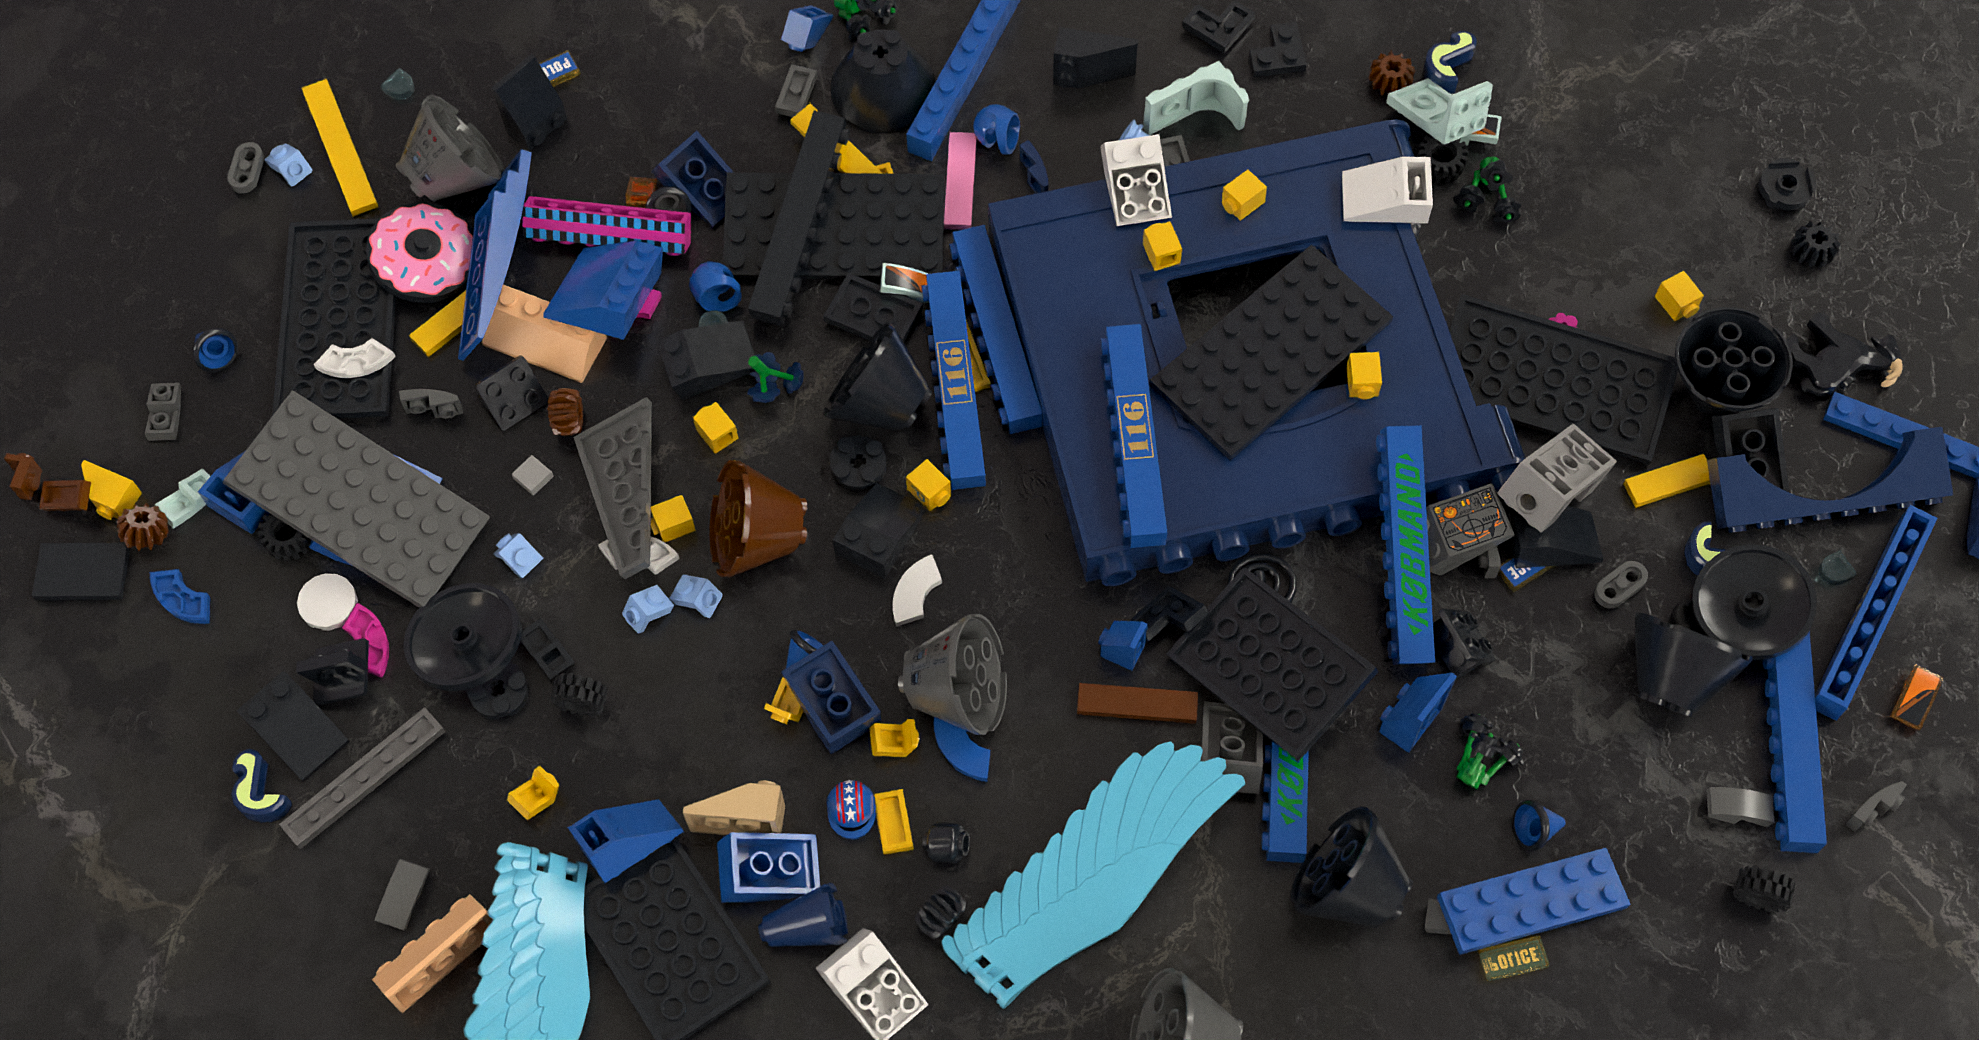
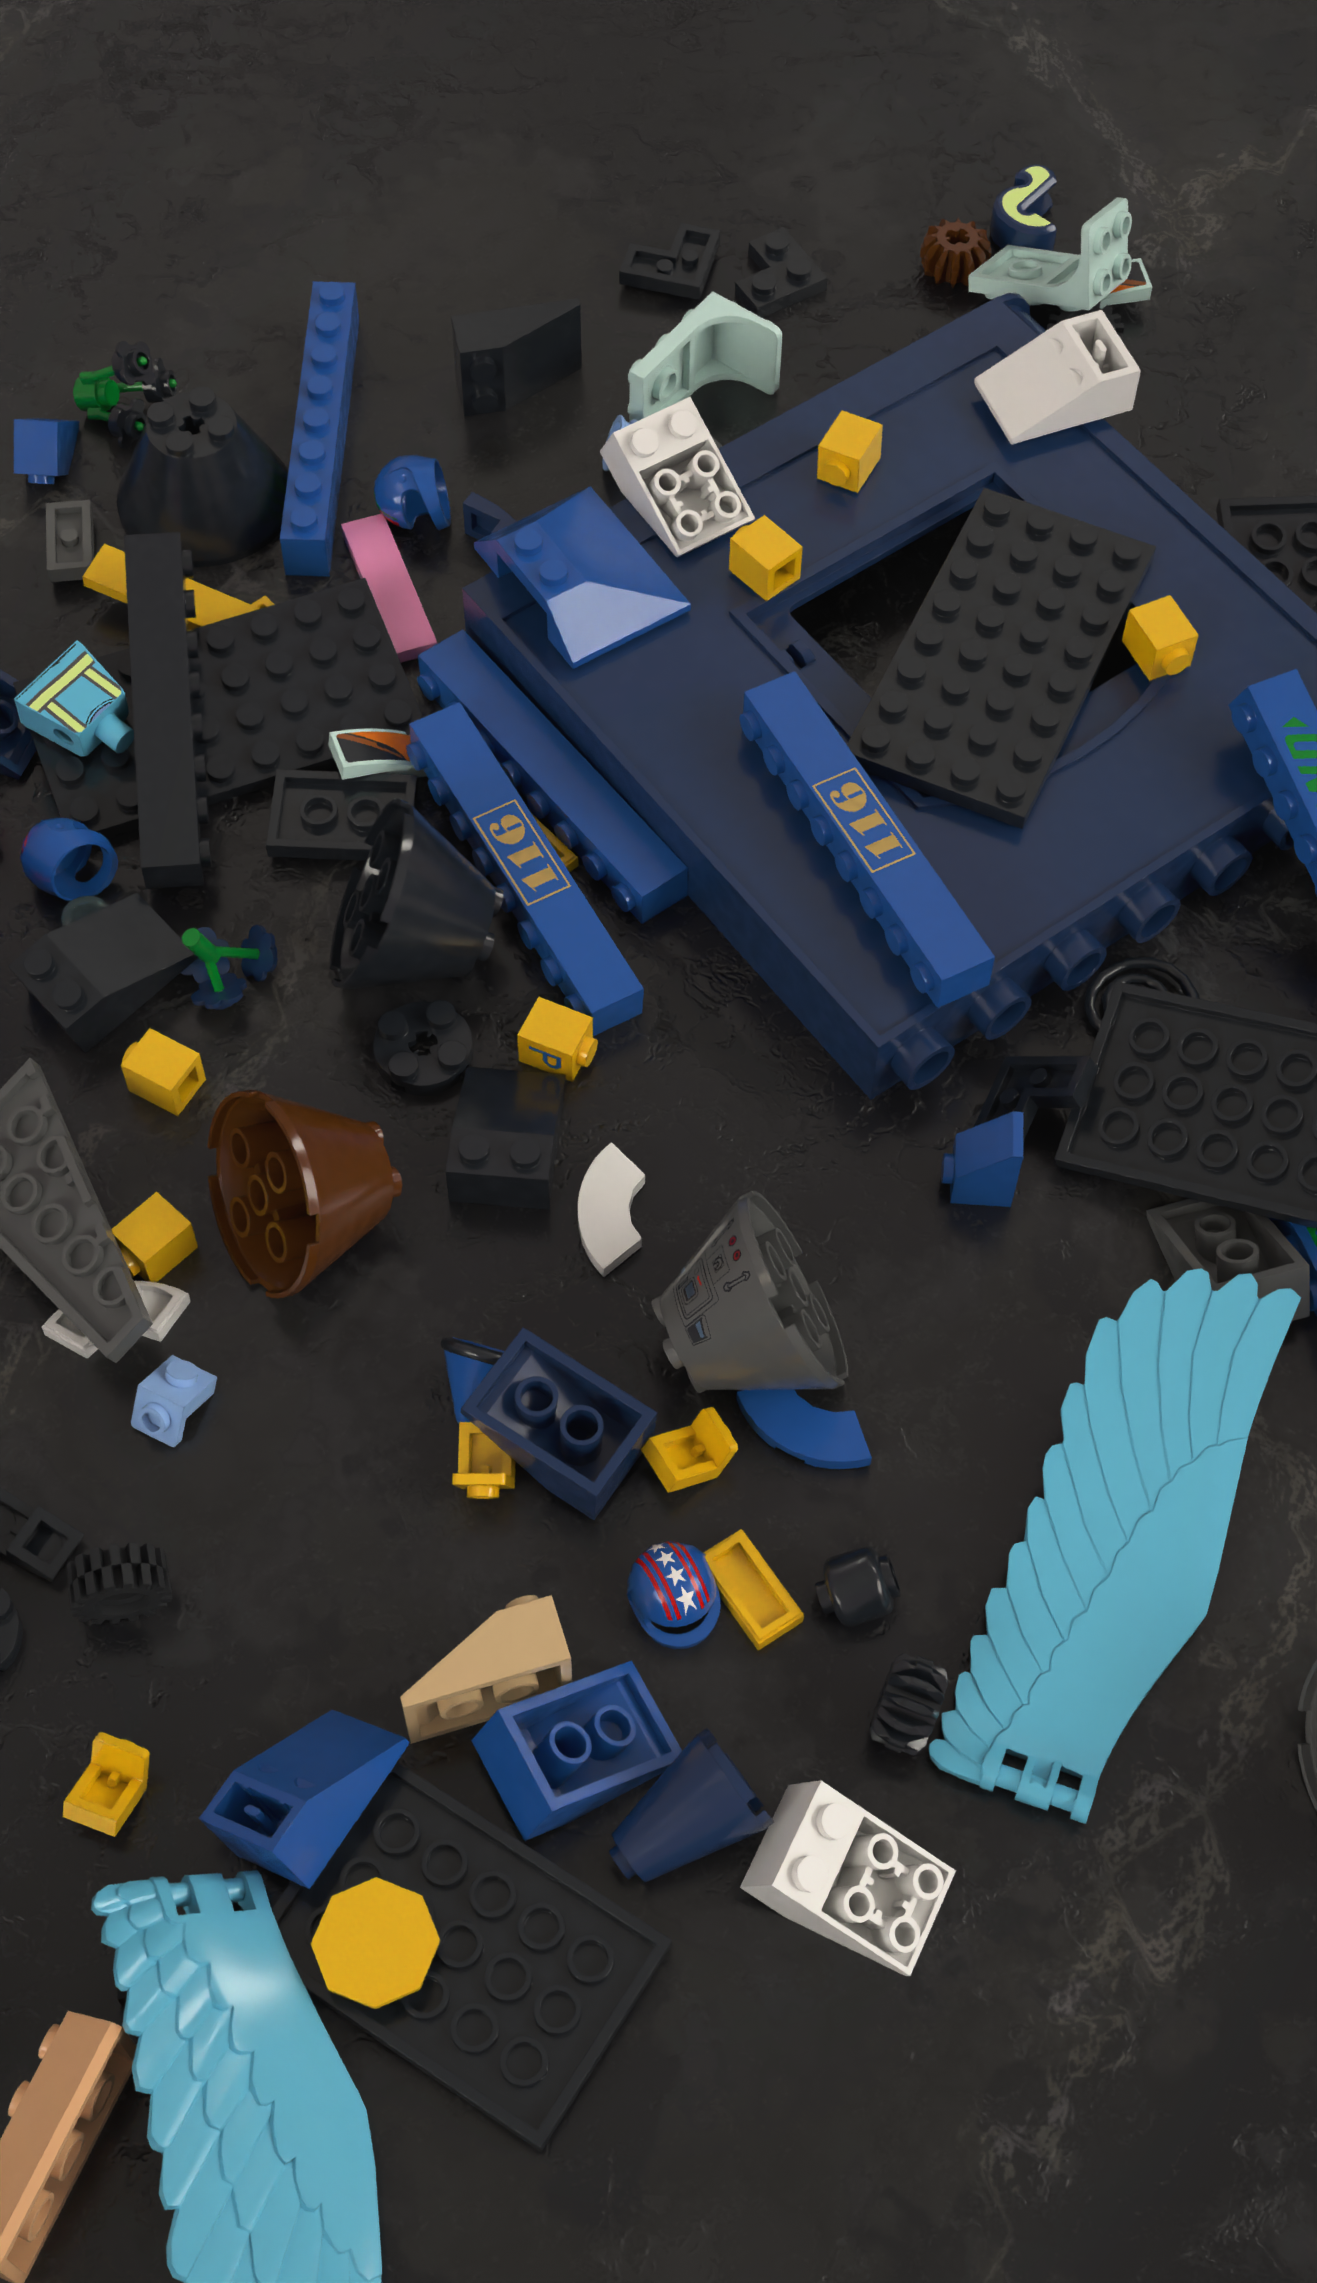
camera: 25 degrees left, 5 degrees down
(624, 921) = (375, 1943): none -> yellow piece
(696, 594) = (248, 1344): light blue bracket -> none
(752, 200) = (76, 704): none -> medium azure torso
(1057, 220) = (585, 576): none -> blue slope
(1137, 703) = (1046, 1251): reddish brown tile -> none
(1494, 175) = (1173, 332): black plant -> none

